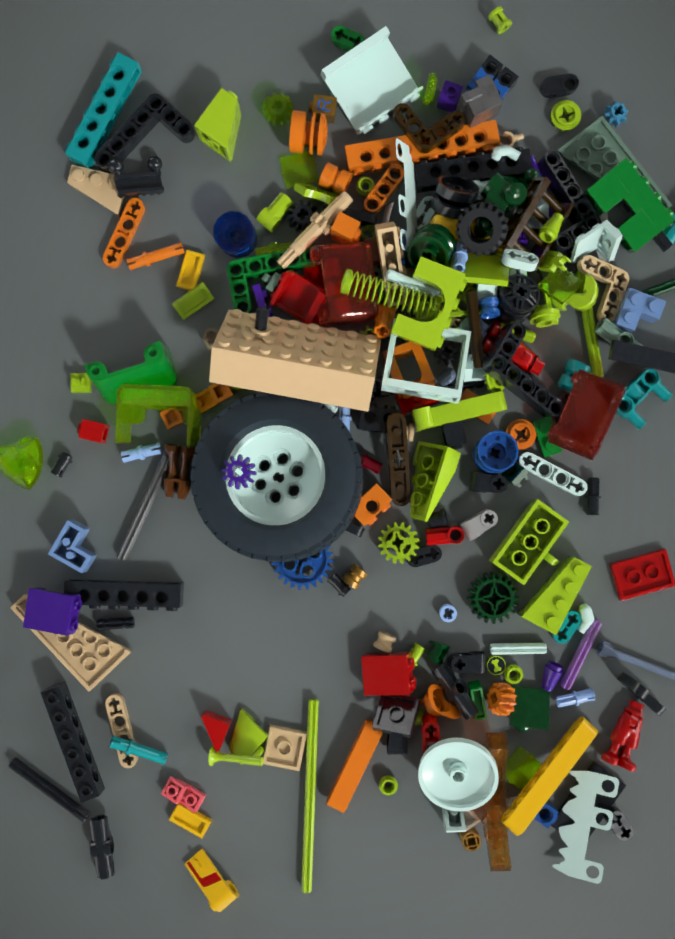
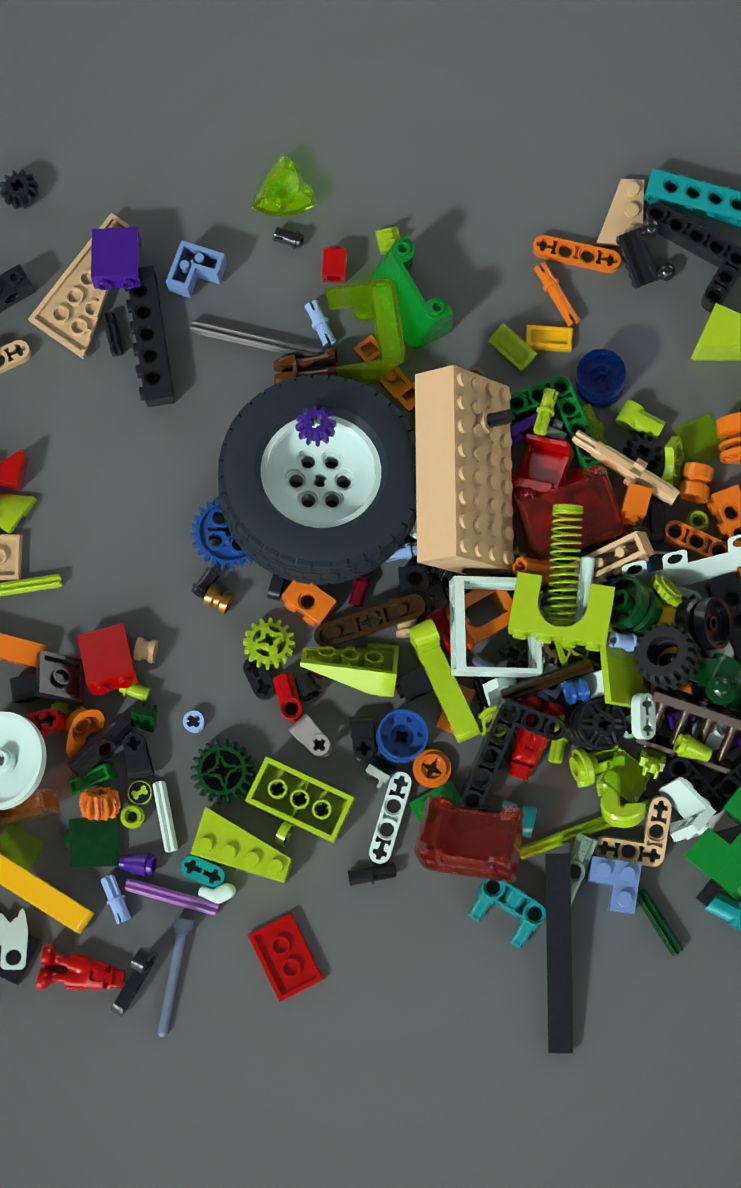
camera: 90 degrees right, 10 degrees down
(255, 284) = (545, 411): none -> lime axle
(424, 218) = (666, 589): none -> lime gear

